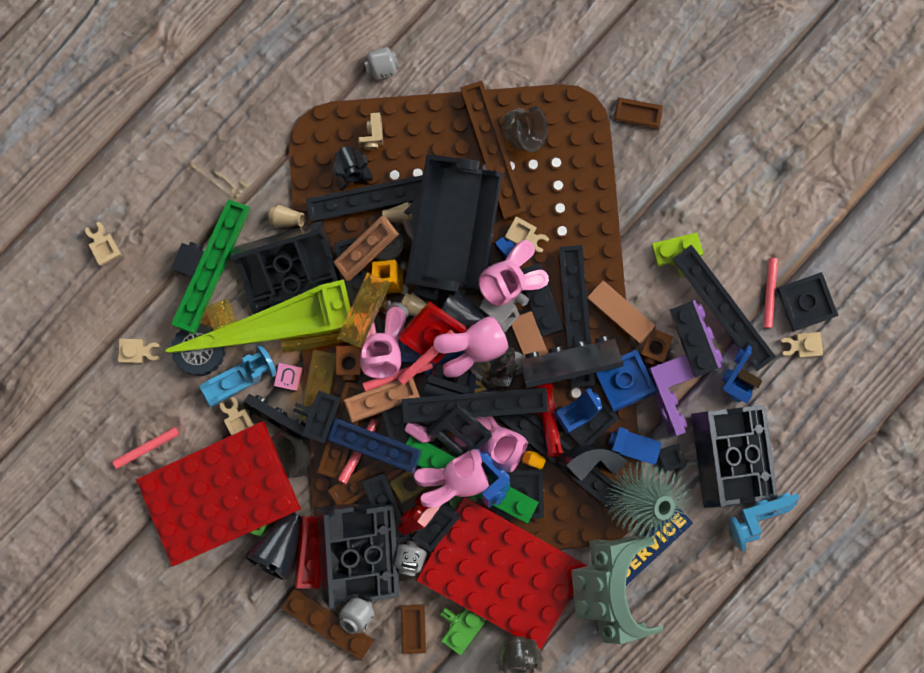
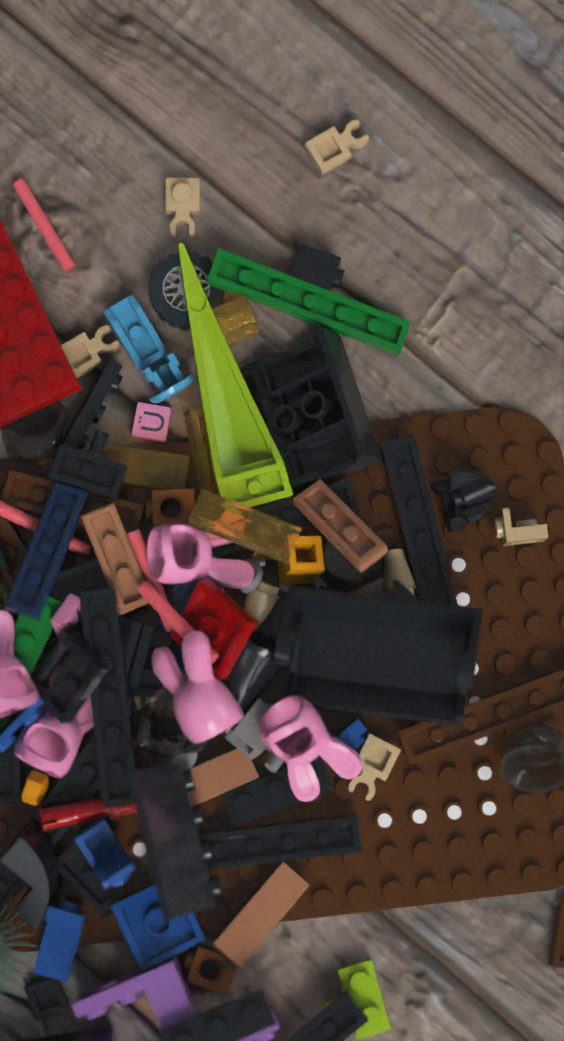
camera: 85 degrees right, 0 degrees up
(285, 217) = (386, 406): tan cone -> none

